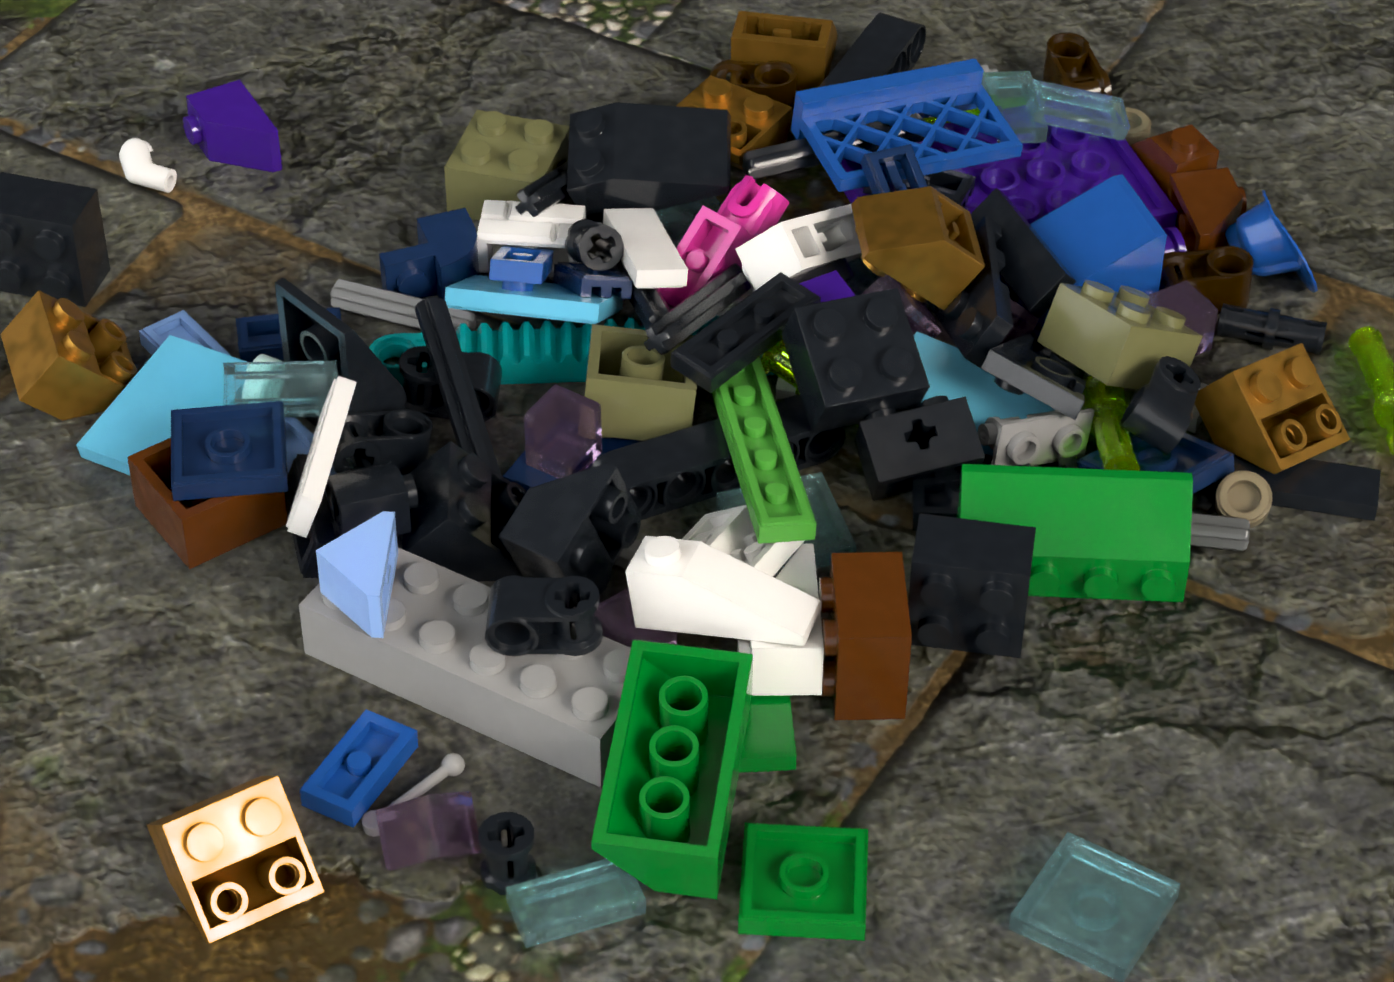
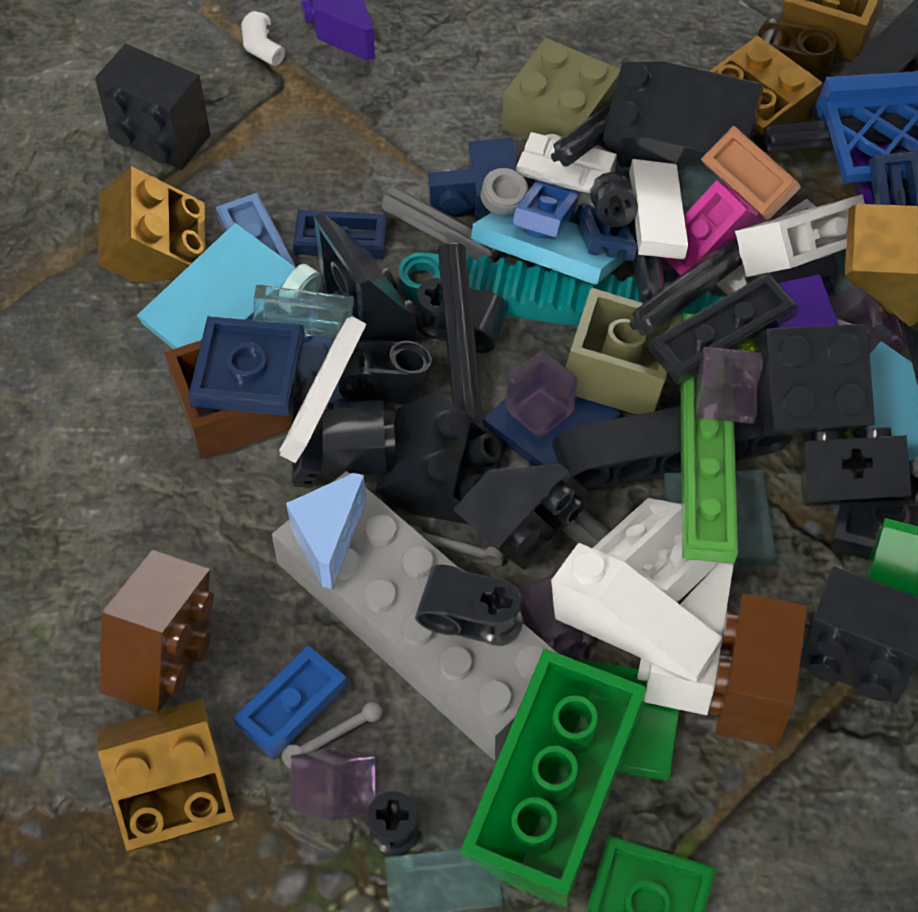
camera: 15 degrees right, 15 degrees up
(193, 711) = (155, 631): none -> reddish brown brick
(469, 256) = (503, 191): none -> light grey tile
(737, 191) = (750, 173): none -> nougat tile
(765, 377) = (728, 385): none -> panel

